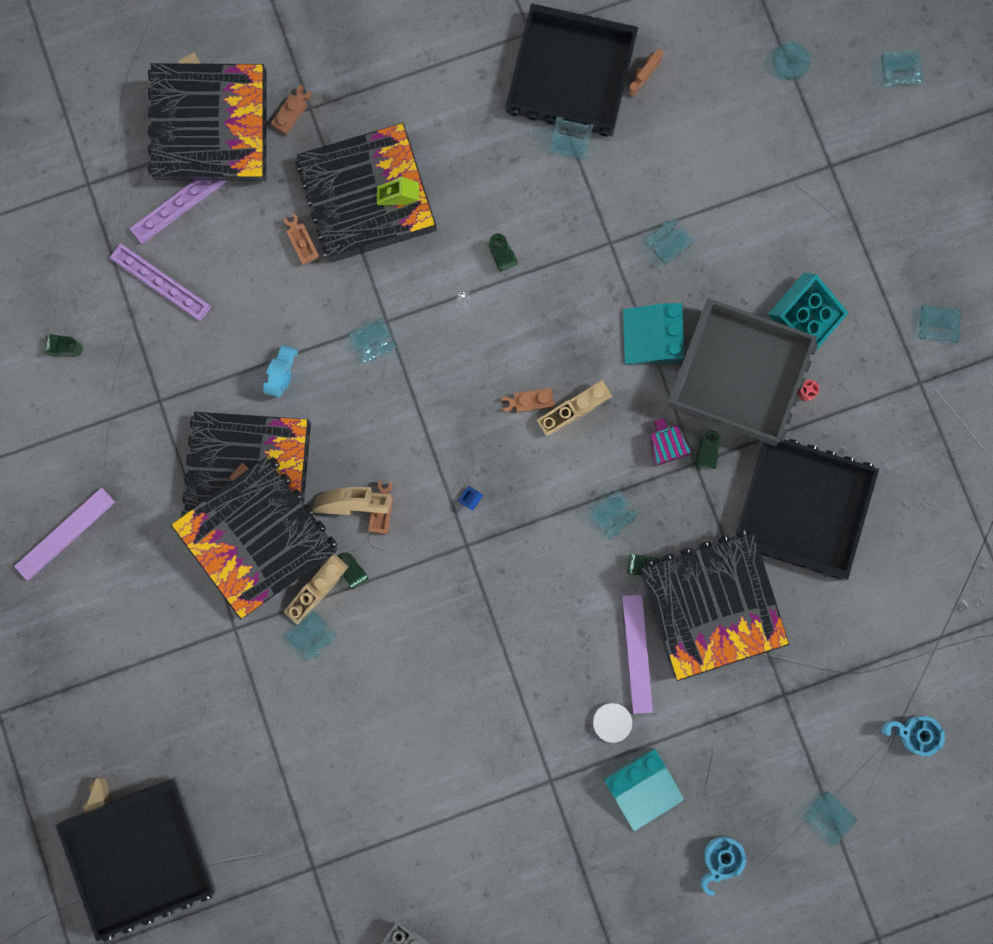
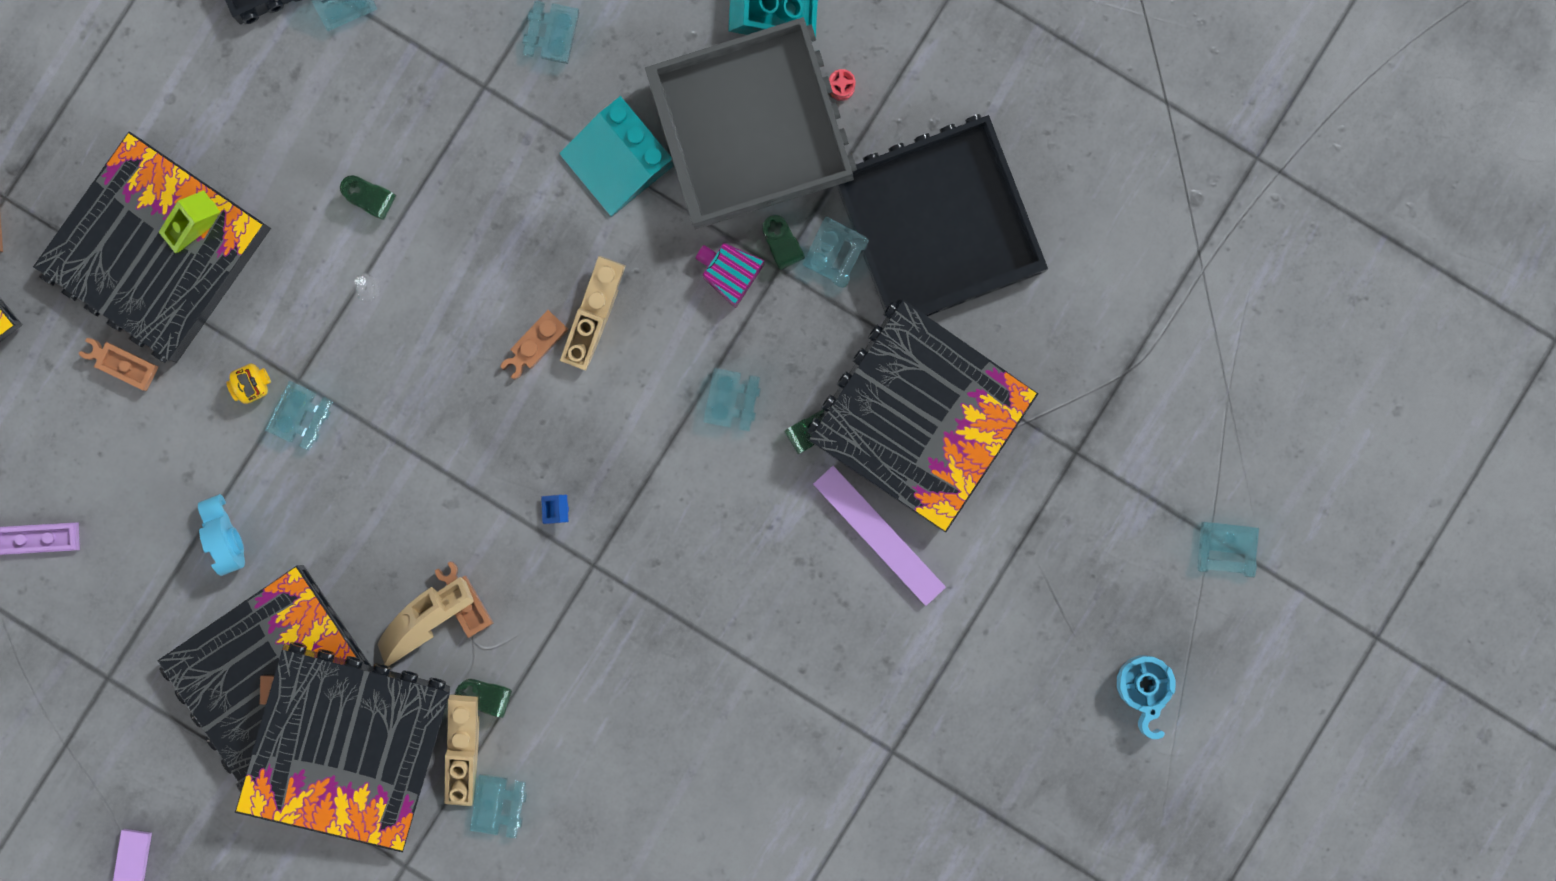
camera: 40 degrees left, 5 degrees up
(360, 302) = (248, 383): none -> yellow head
(612, 722) = (910, 634): white tile -> none
(643, 789) = (1000, 680): teal slope -> none
(731, 472) = (827, 247): none -> clear light blue plate
(910, 732) = (1243, 383): medium azure piece -> none

